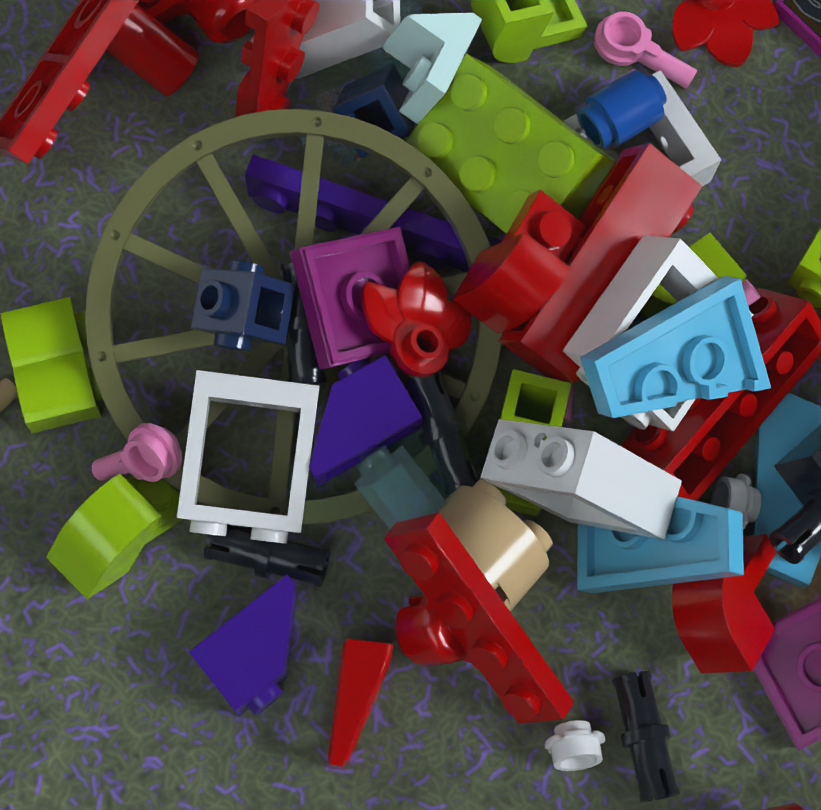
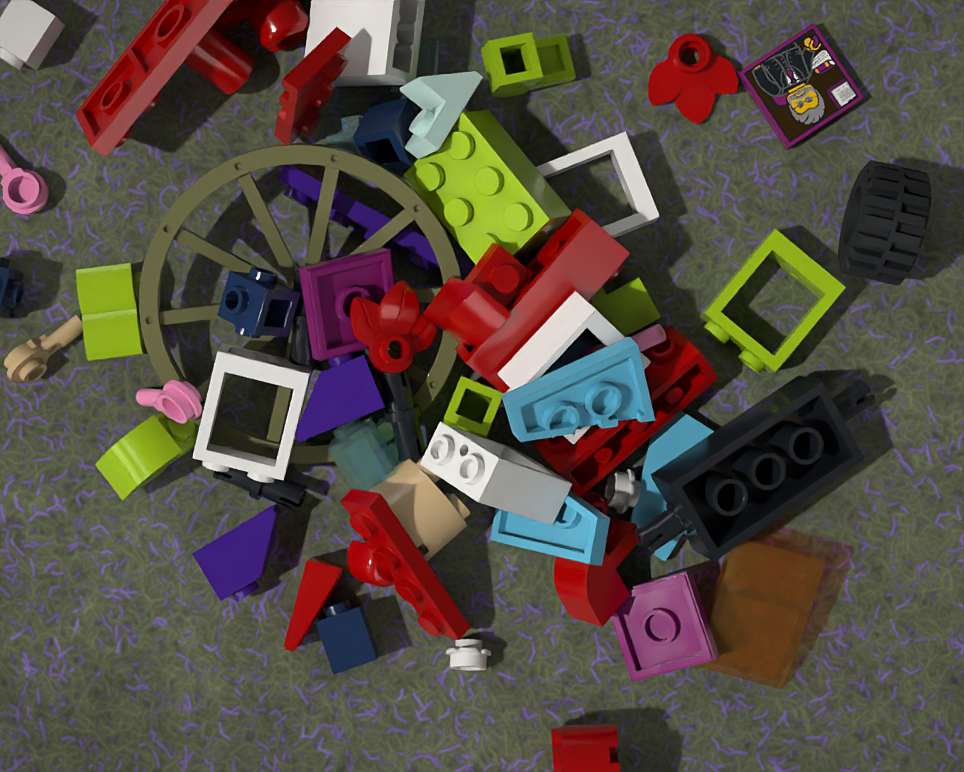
camera: 15 degrees right, 15 degrees up
(409, 739) = (346, 636): none -> dark blue brick
(622, 109) = (584, 170): blue brick -> none
(626, 40) = (606, 90): bright pink plate -> none
(645, 736) = (521, 656): black pin -> none

